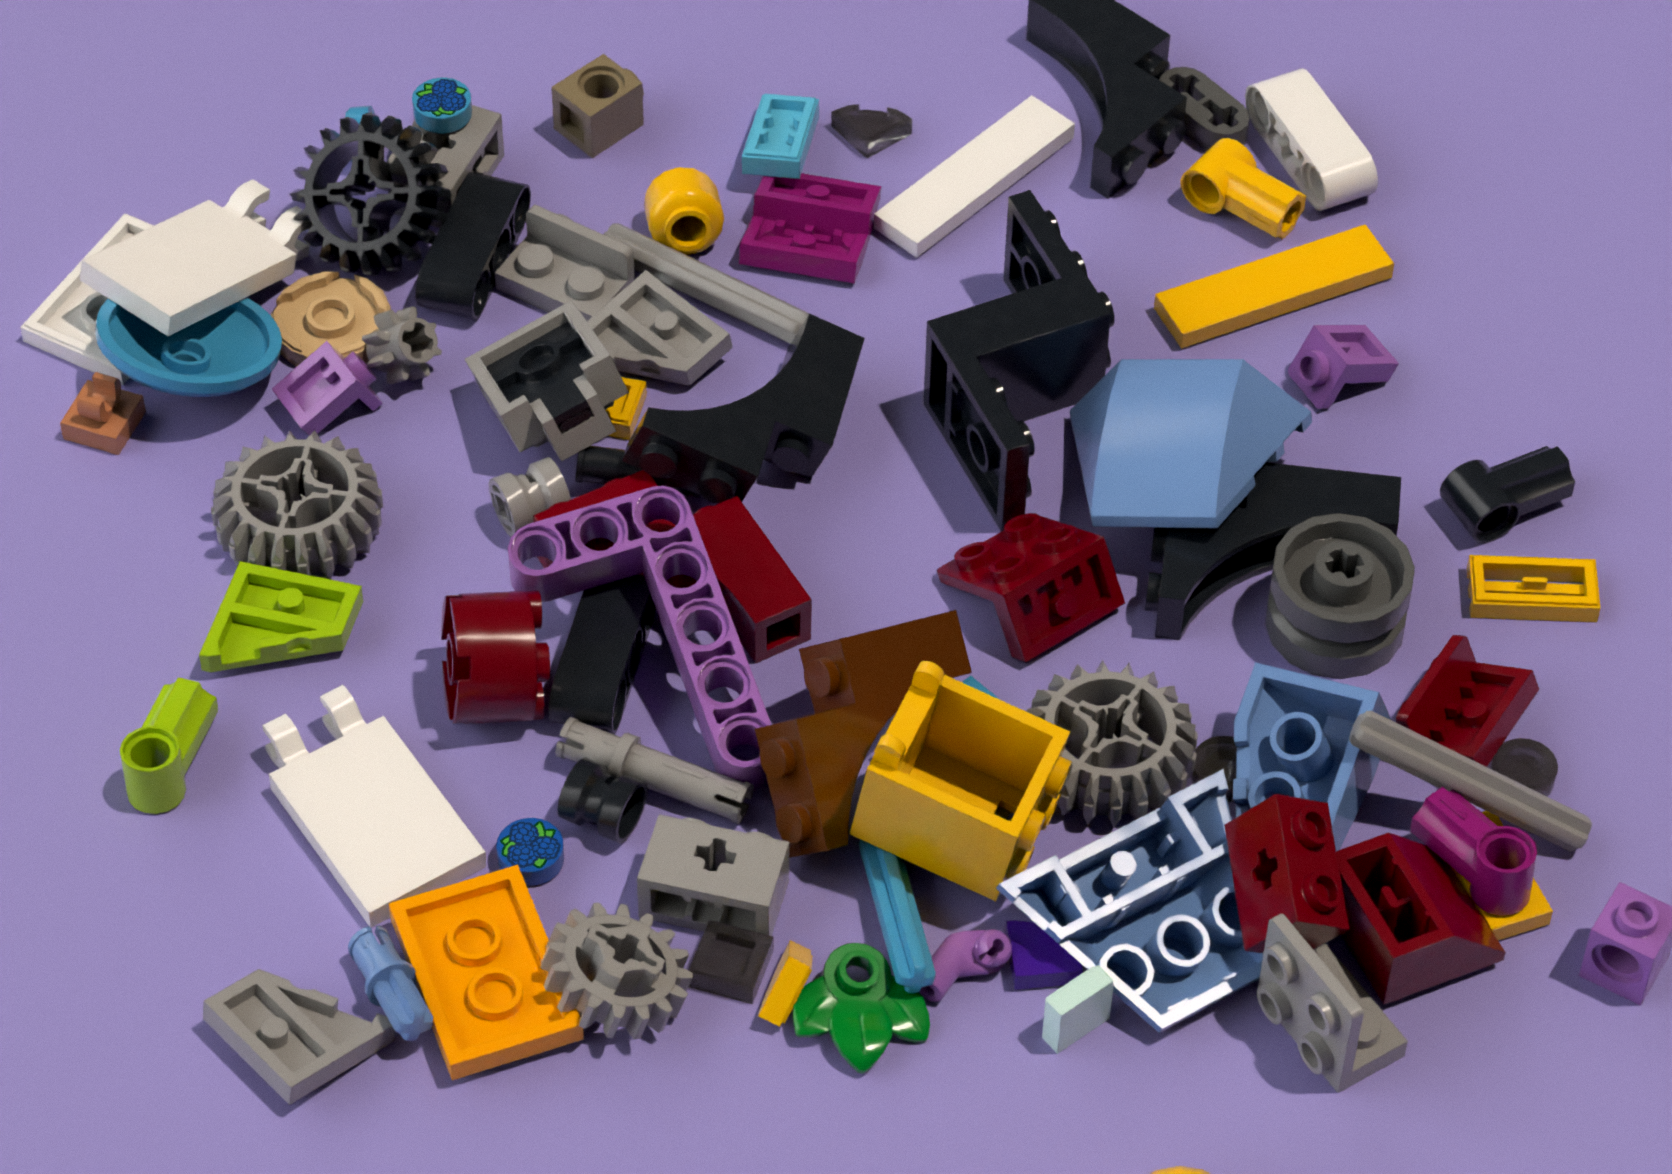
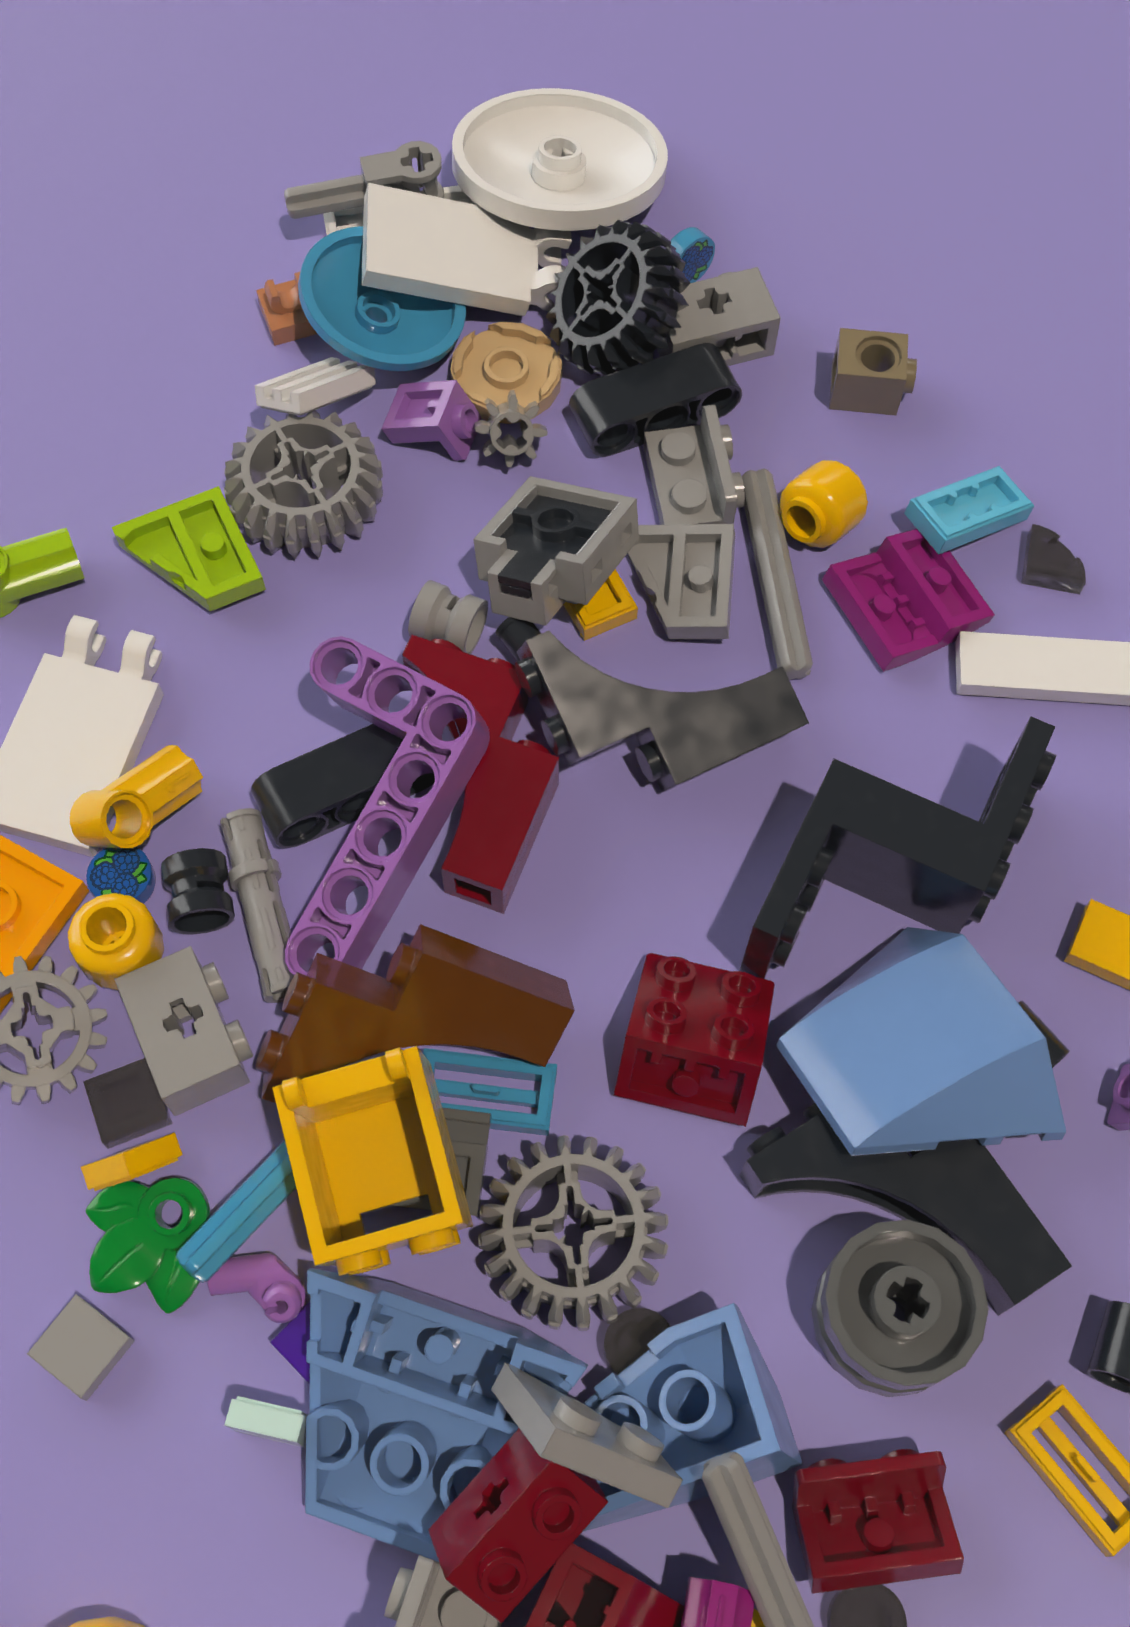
camera: 50 degrees right, 15 degrees up
(85, 231) = (385, 169): none -> light grey connector
(179, 141) = (559, 159): none -> white dish
(213, 434) = (314, 386): none -> white tile
(442, 105) = (742, 275): tile -> none
(487, 787) = (139, 800): none -> yellow piece
(493, 657) = (252, 711): dark red brick -> none
(597, 864) = (113, 938): none -> yellow head
(903, 1103) = (80, 1347): none -> light grey tile
(1302, 773) = (585, 1440): none -> light grey wing

